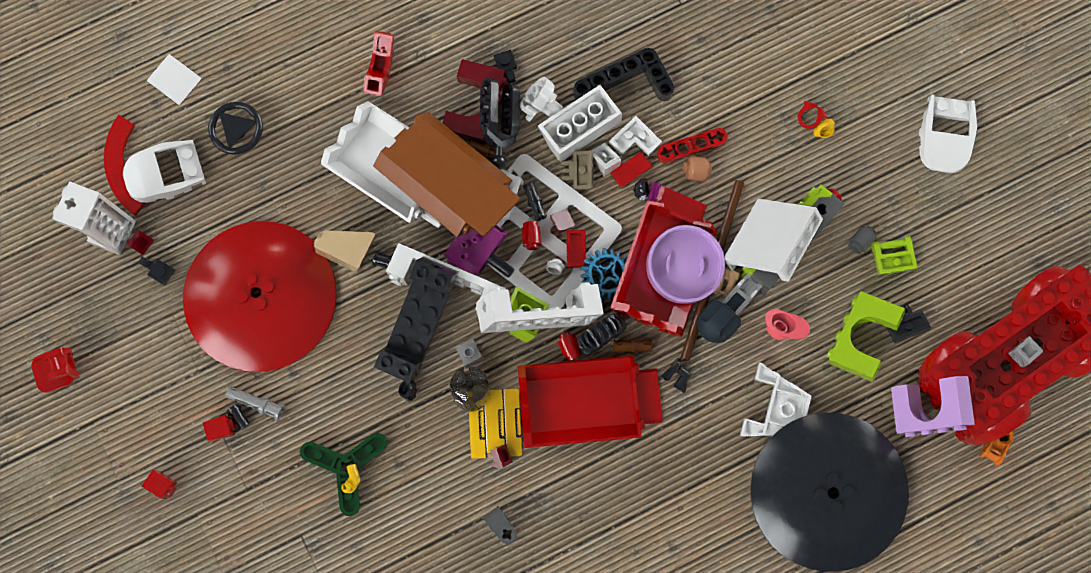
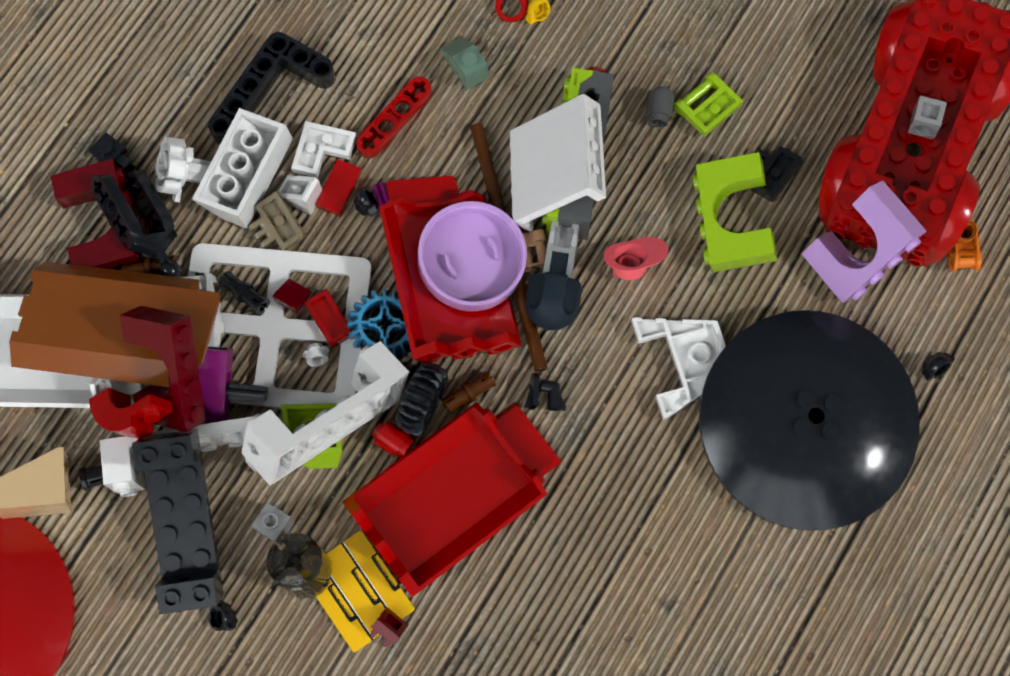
camera: 30 degrees left, 5 degrees down
(416, 234) = (115, 413): none -> red arch
(475, 213) = (173, 340): none -> dark red arch
(531, 235) = (263, 334): red brick -> none
(697, 168) = (416, 139): nougat head -> none
(758, 136) = (466, 62): none -> sand green slope
(931, 508) = (937, 365): none -> black piece

